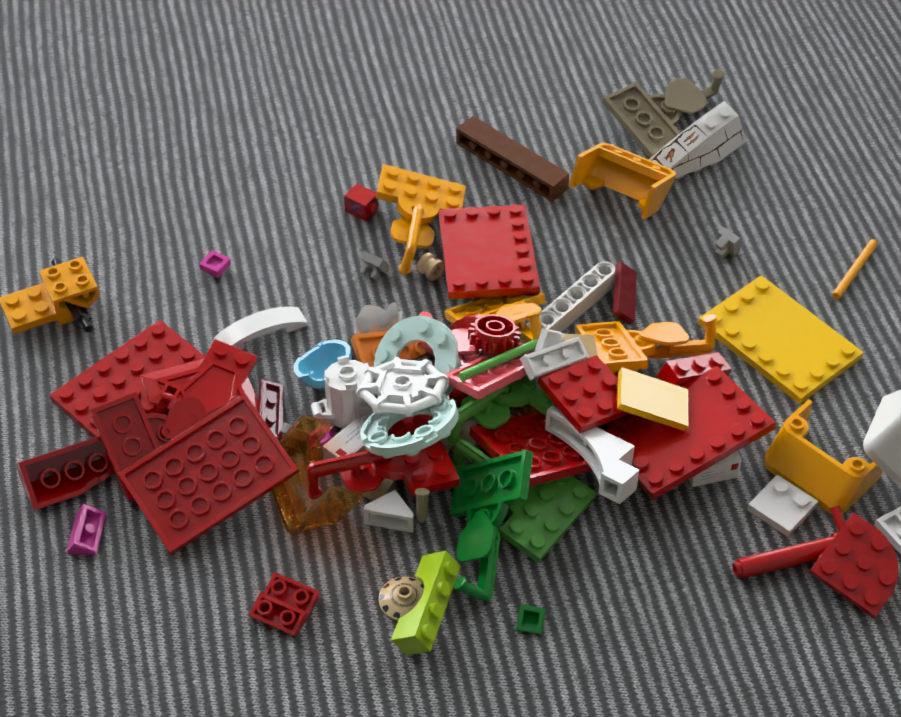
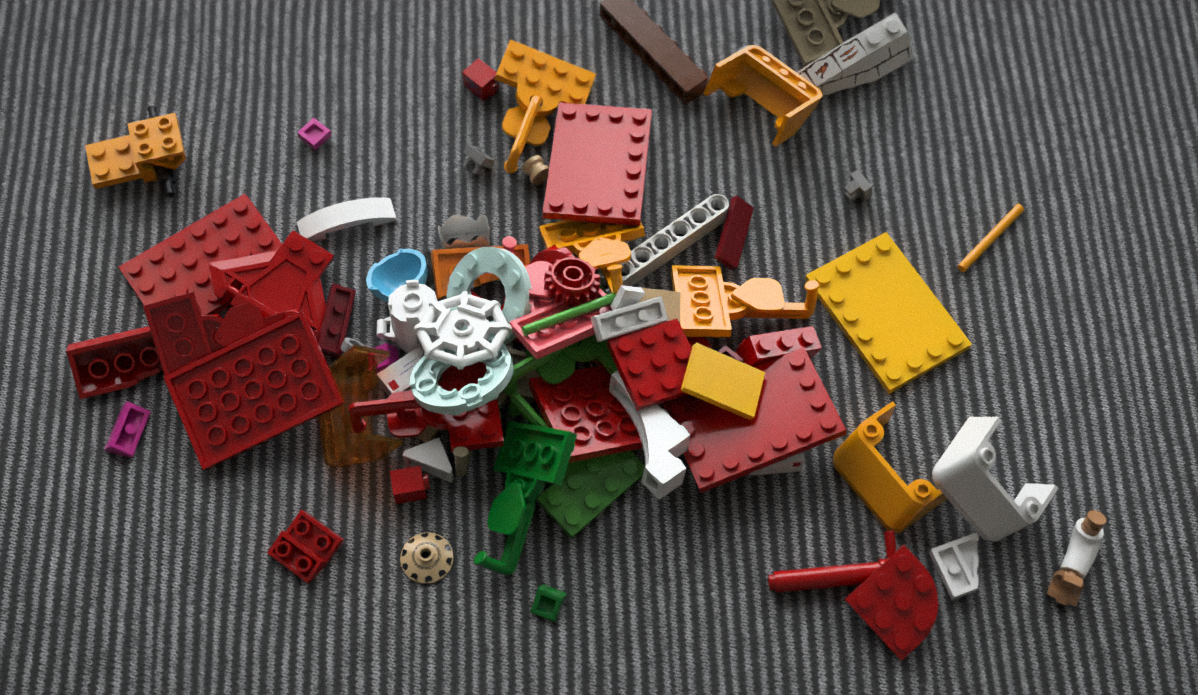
camera: 10 degrees right, 15 degrees up
(374, 536) = (409, 484): none -> red brick
(419, 627) = (429, 599): lime arch -> none
(782, 505) = (838, 513): white plate -> none

